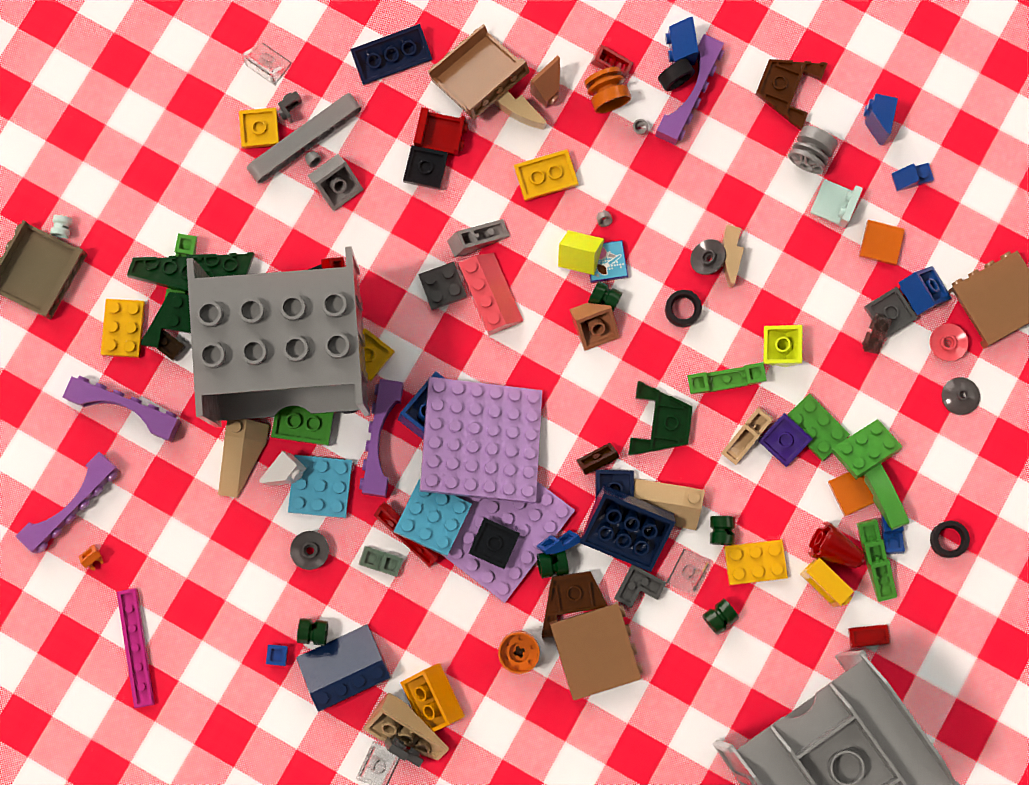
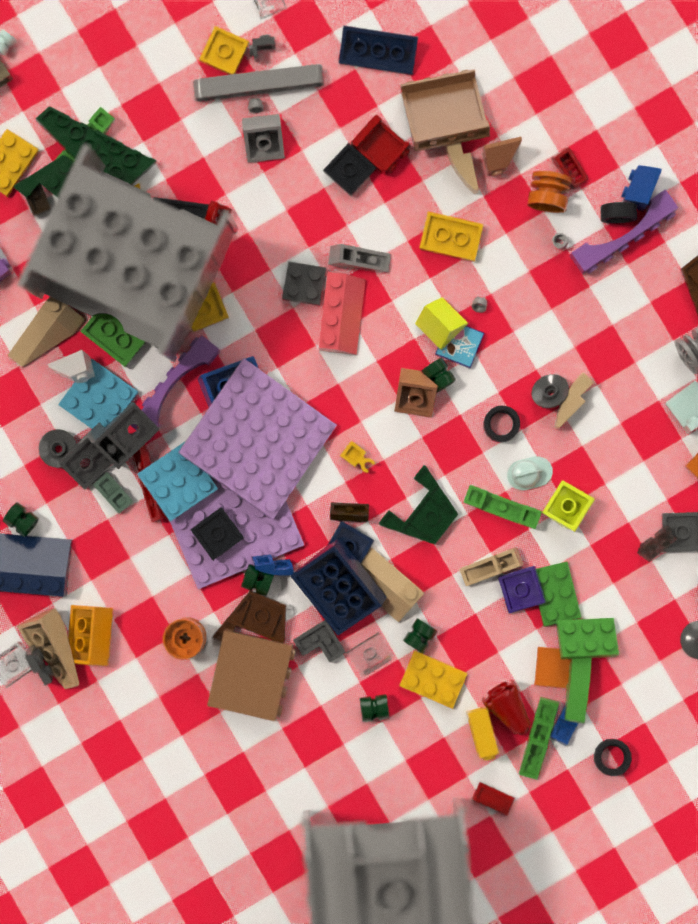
camera: 30 degrees right, 5 degrees up
(354, 520) = (108, 445): none -> dark grey bracket
(572, 407) = (355, 455): none -> yellow plate
(731, 337) = (529, 473): none -> light aqua piece

